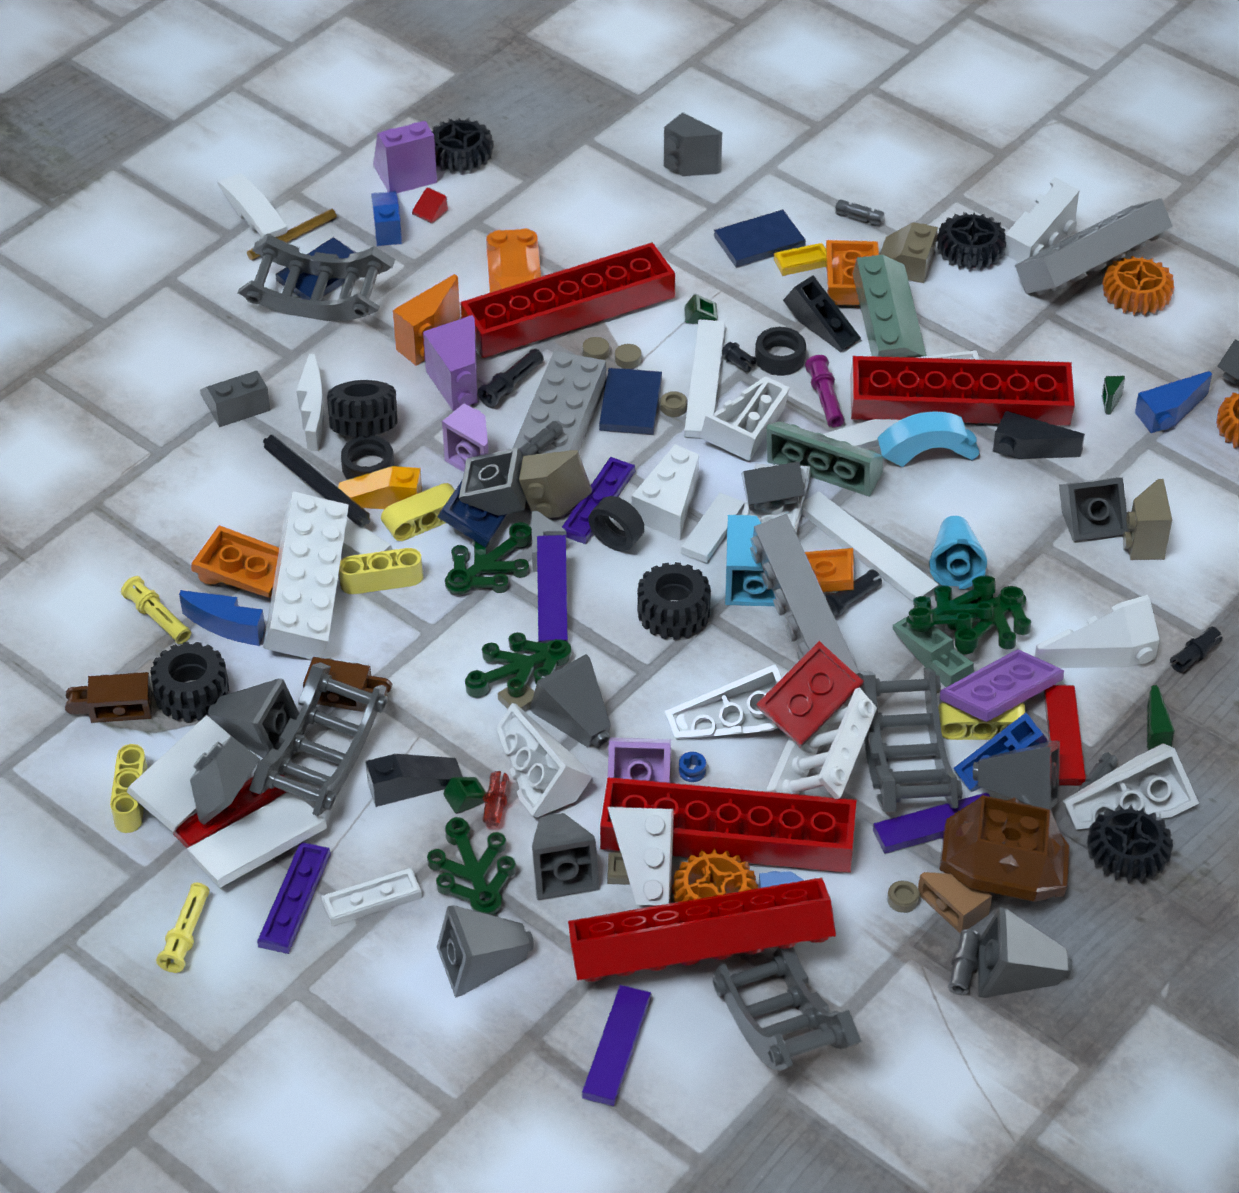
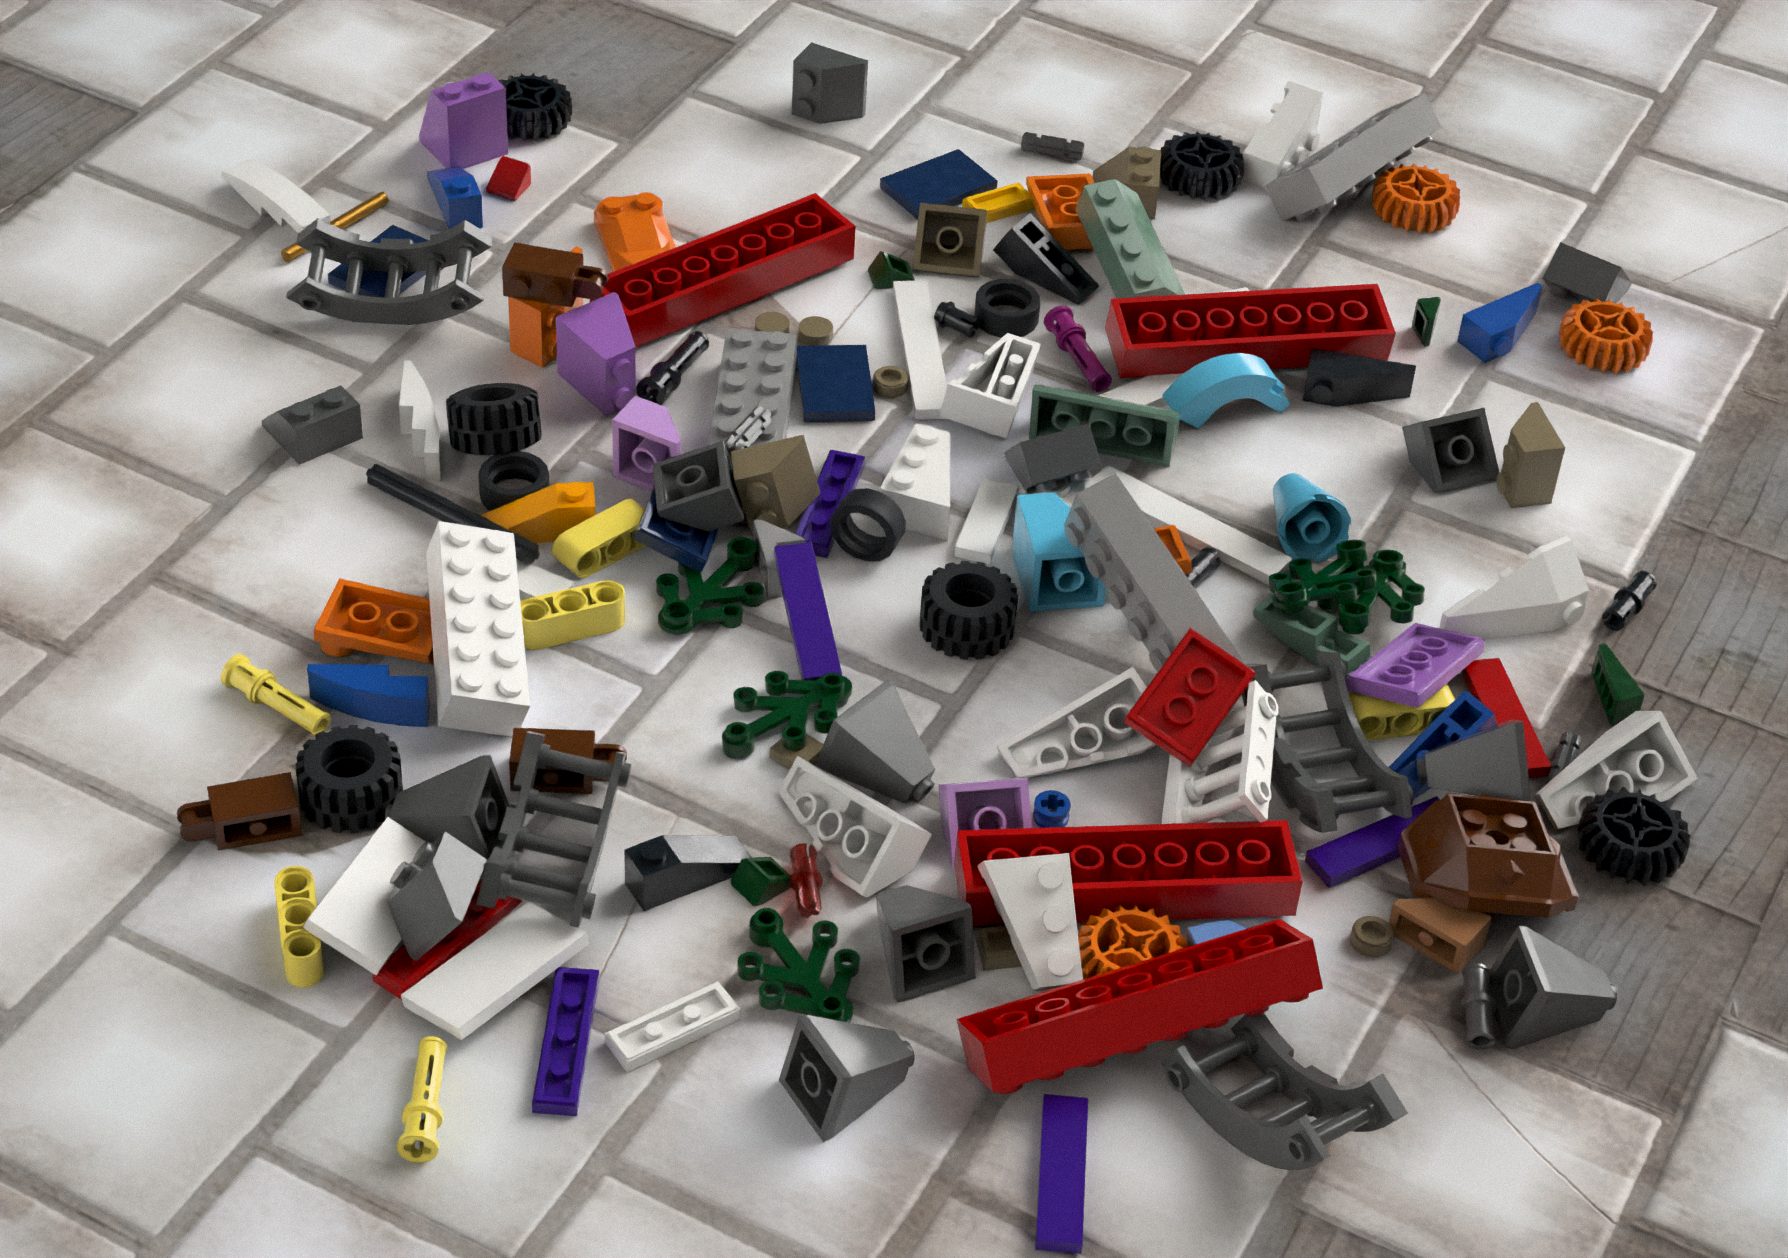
camera: 15 degrees left, 5 degrees down
(423, 299) = (550, 276): none -> reddish brown brick
(751, 289) = (950, 240): none -> dark tan slope

